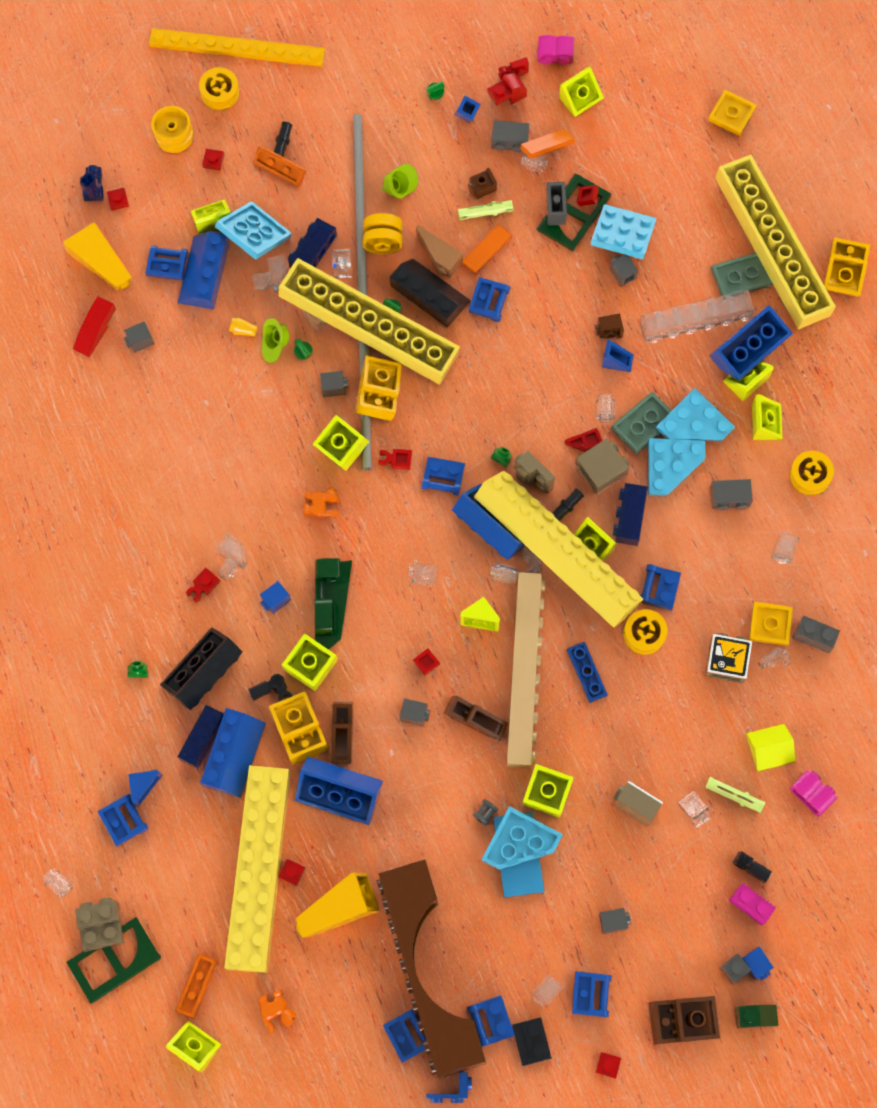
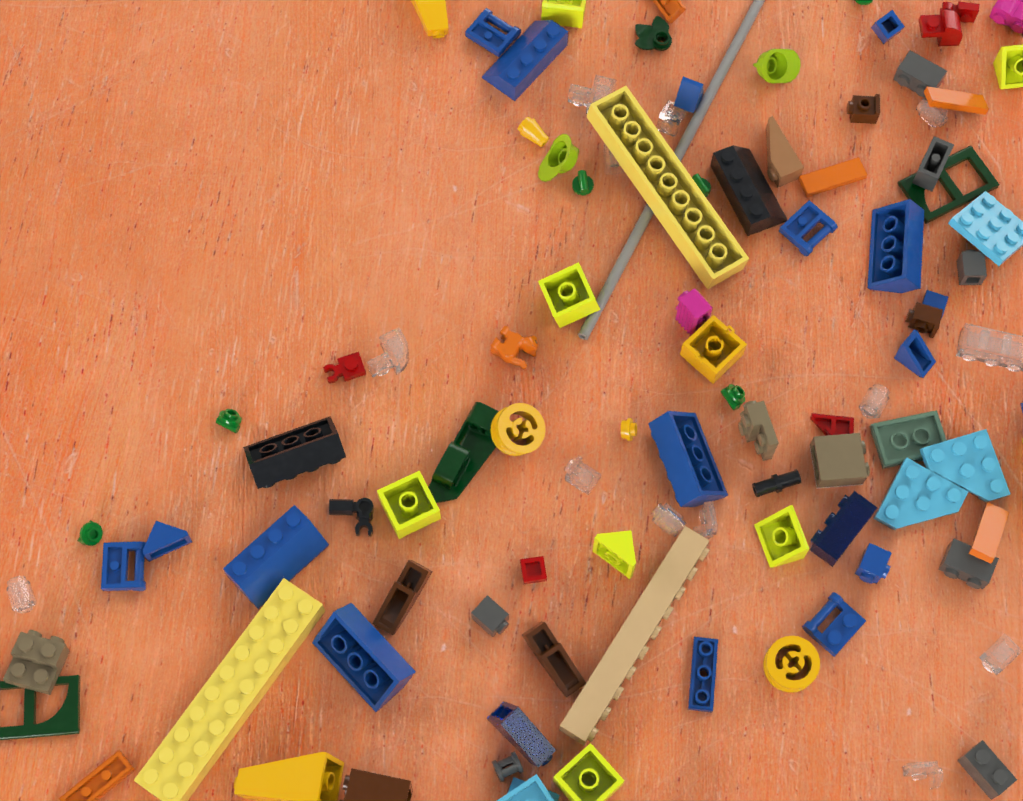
camera: 25 degrees right, 5 degrees down
(83, 810) = (90, 534): none -> green plate
(94, 326) = (384, 58): red slope -> none
(138, 337) = (422, 90): dark grey brick -> none
(201, 737) = (251, 523): clear blue brick -> none
(253, 230) = (597, 40): medium azure plate -> none
(274, 597) = (411, 419): blue brick -> none
(290, 203) = (651, 35): none -> dark green plate
(291, 872) = (265, 717): red plate -> none
(298, 728) = (359, 568): yellow slope -> none
(314, 244) = (654, 84): clear blue brick -> none
(333, 383) = (595, 233): dark grey brick -> none
(346, 239) = (689, 95): none -> blue slope
(349, 569) = (531, 429): none -> yellow wheel
(378, 388) = (640, 260): yellow slope -> none
(382, 233) = (729, 107): yellow wheel -> none
(399, 459) = (621, 344): red plate -> none
(439, 408) = (692, 311): none -> dark pink brick
(439, 521) = (628, 429): none -> yellow plate
(443, 470) = (664, 380): blue plate -> none
(469, 429) = (713, 349): none -> yellow brick
(482, 783) = (522, 733): none -> clear blue slope
(484, 210) = (851, 136): yellowish green pin -> none
(558, 548) = (743, 524): light yellow brick -> none
(561, 281) = (896, 247): none -> blue slope
(587, 195) = (972, 173): red plate -> none
(609, 308) = (935, 300): none -> blue tile
(665, 529) = (873, 564): none -> blue brick
(728, 658) = (871, 743): piece -> none
(734, 464) = (989, 533): none -> orange tile
(770, 623) = (940, 730): yellow plate -> none

